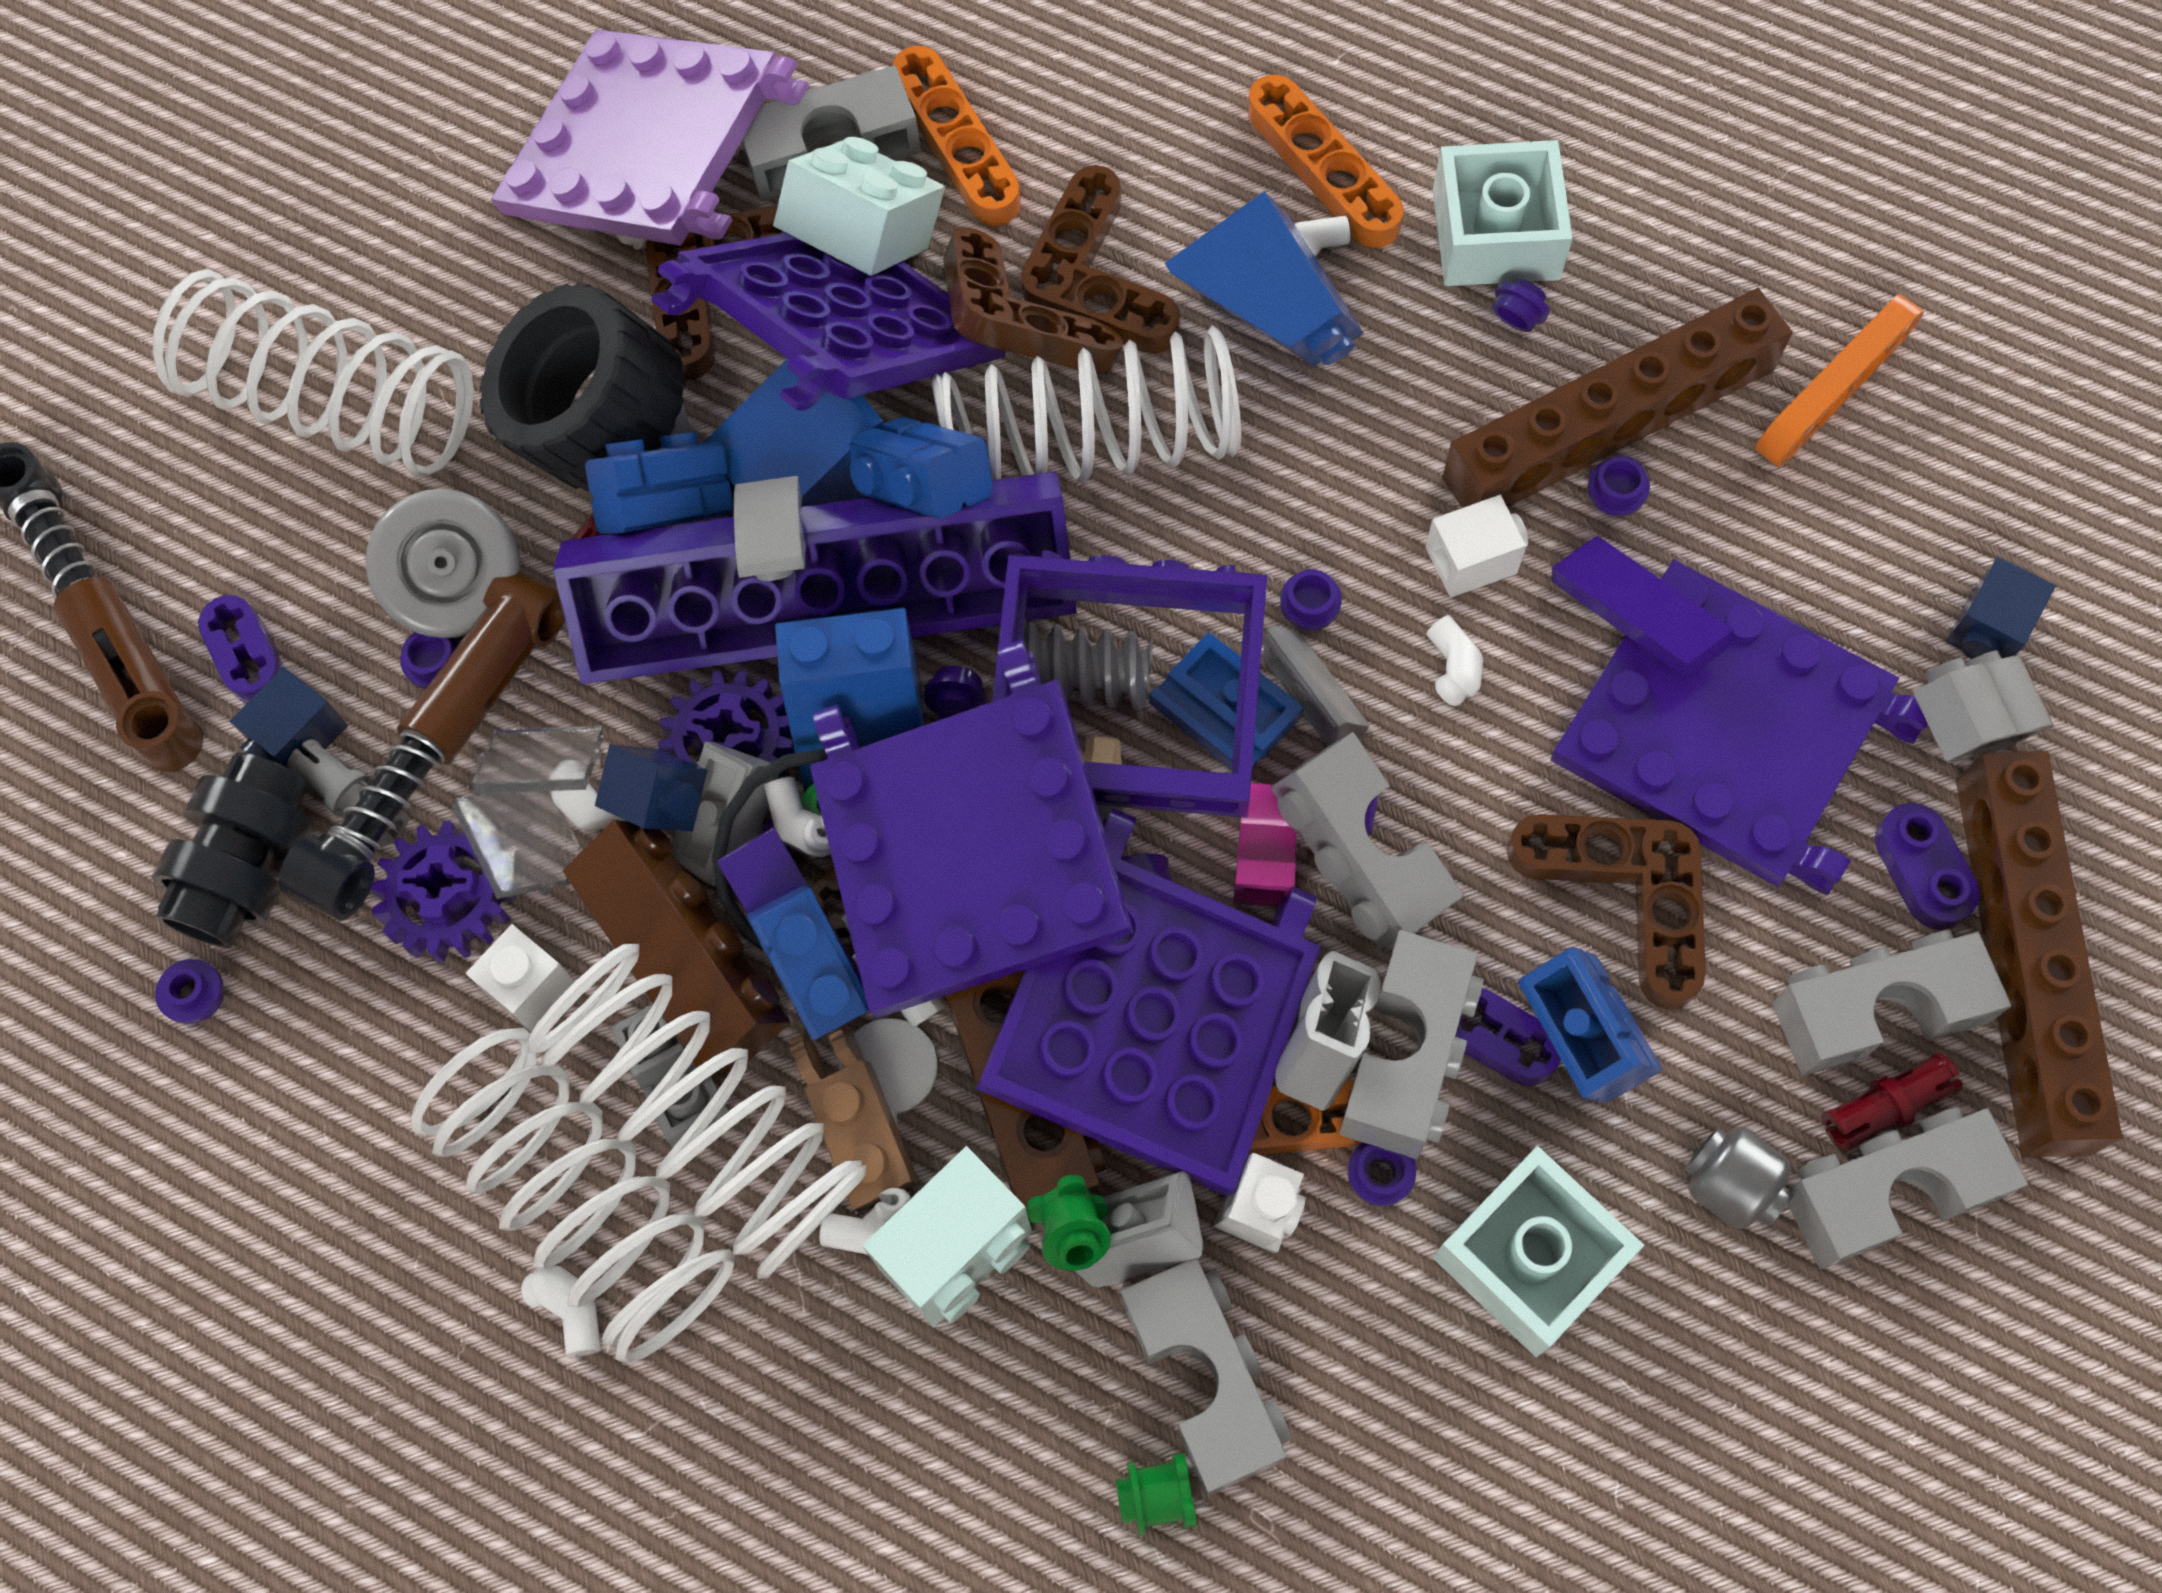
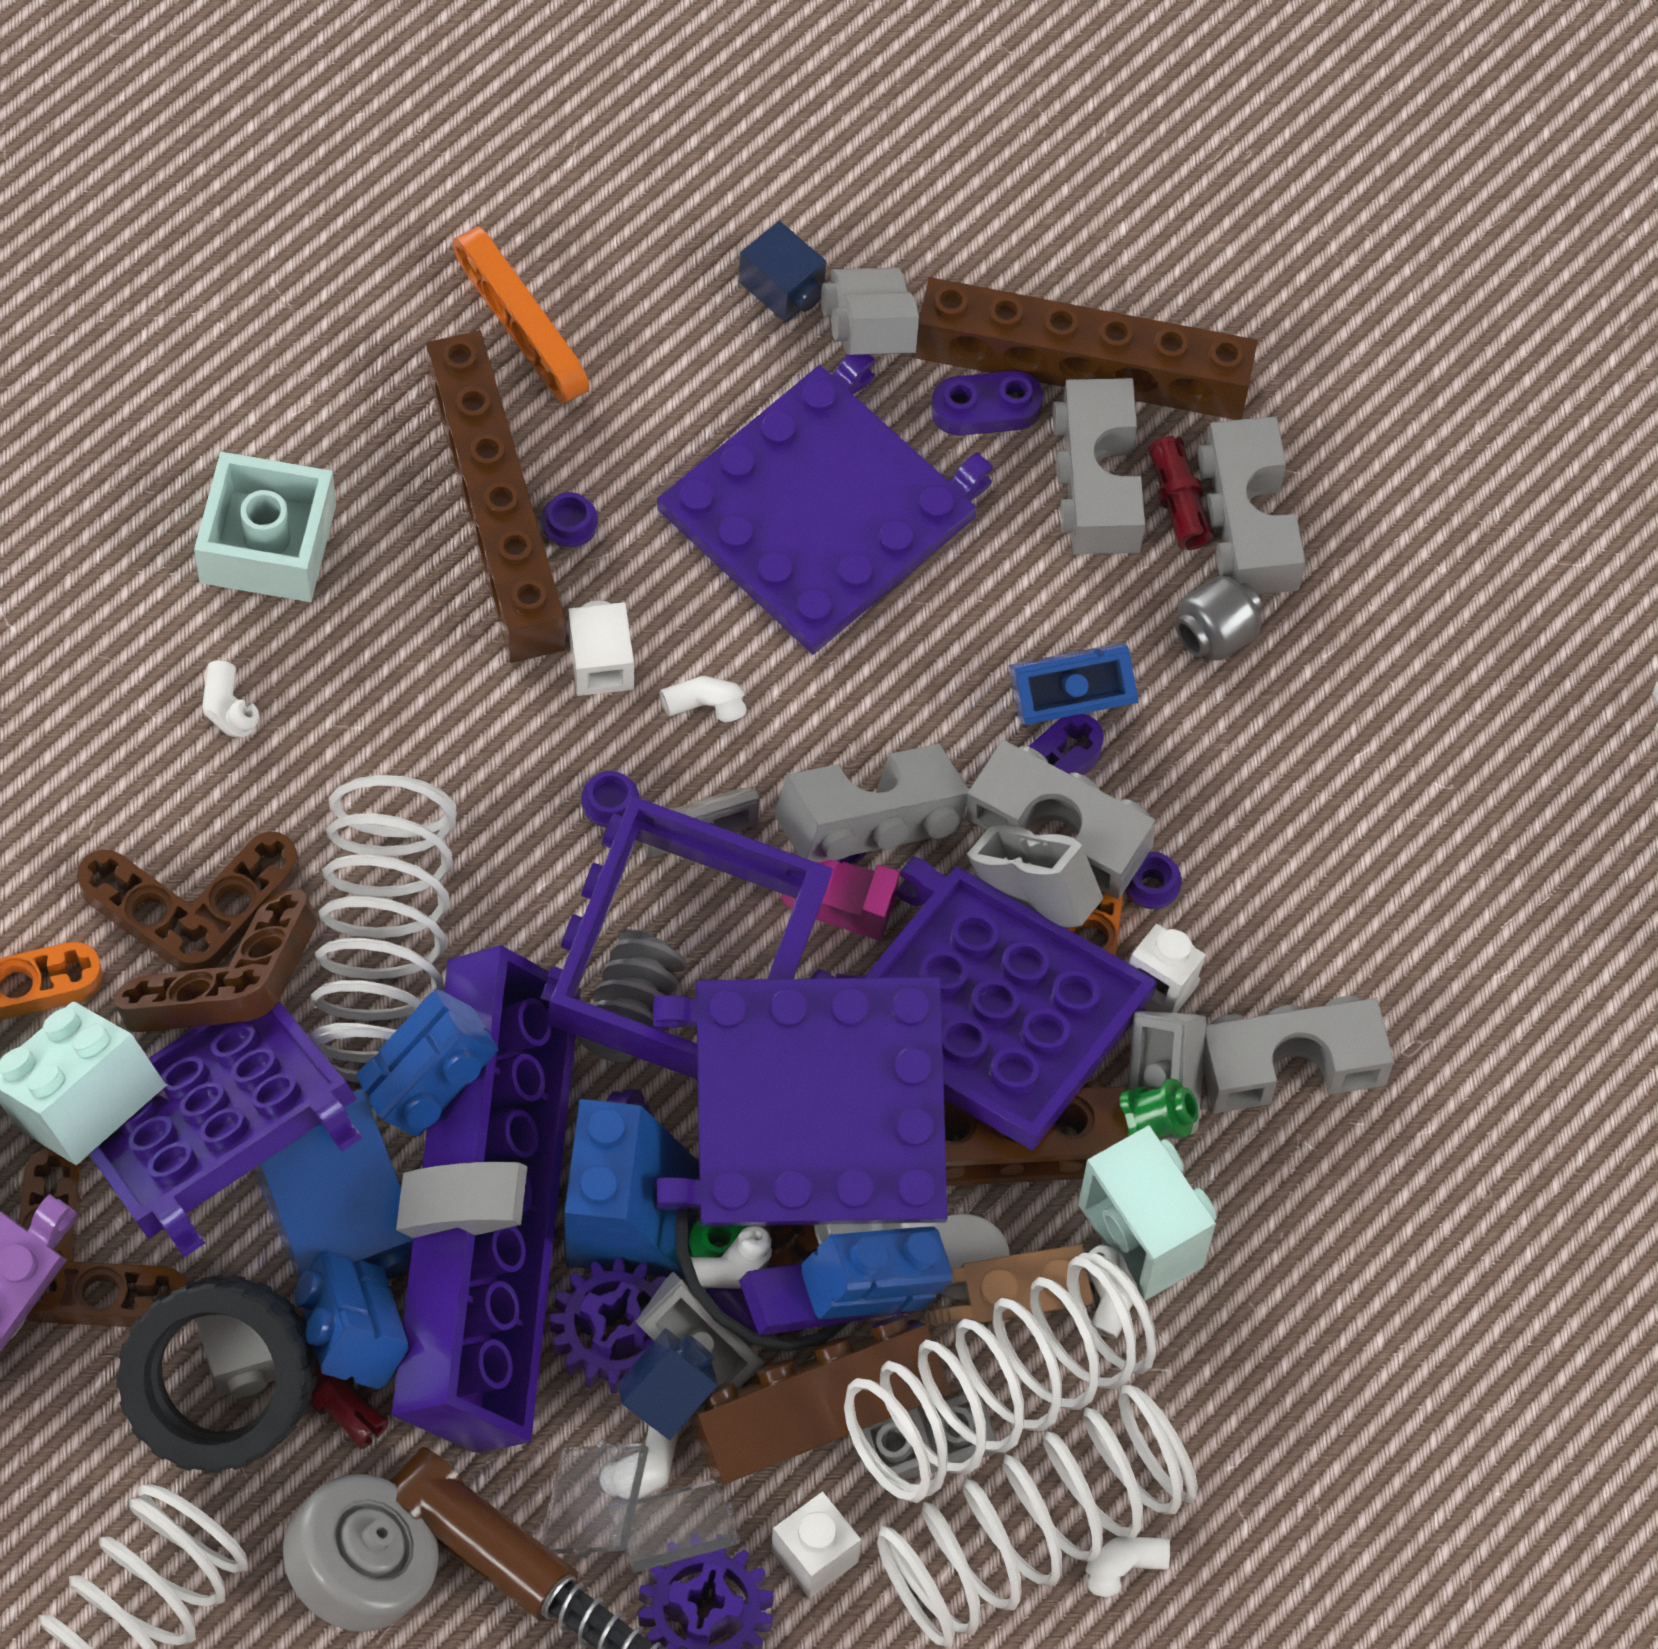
camera: 85 degrees left, 5 degrees down
(424, 657) = (451, 1597): dark purple plate -> none
(1156, 1495) = (1382, 1109): green brick -> none
(1203, 701) = (692, 901): blue plate -> none
(1270, 281) = (294, 732): blue slope -> none
(1331, 156) = (131, 657): orange beam -> none
(1520, 304) = (359, 542): dark purple plate -> none
(1537, 1251) = (1251, 776): light aqua brick -> none
(1635, 866) = (934, 610): reddish brown beam -> none
(1643, 606) = (702, 533): dark purple tile -> none

